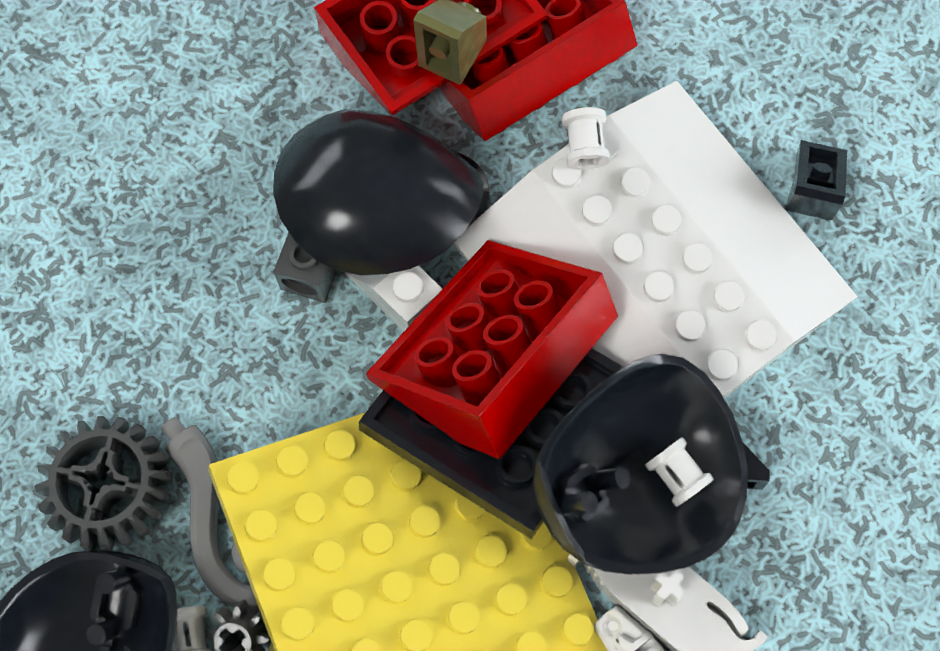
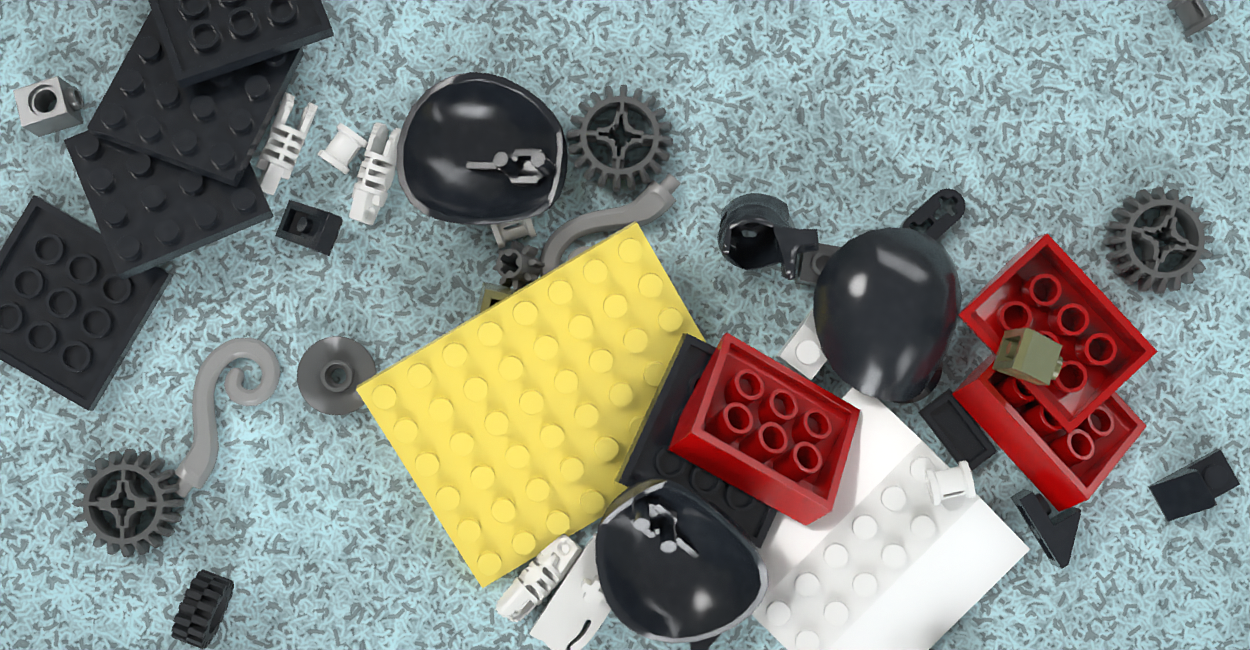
camera: 75 degrees right, 15 degrees up
(260, 312) = (775, 238): none -> black piece
(268, 143) = (930, 206): none -> black beam
(526, 144) = (957, 430): none -> black tile
(661, 56) = (1055, 534): none -> black slope
(679, 472) = (683, 589): white bush -> none

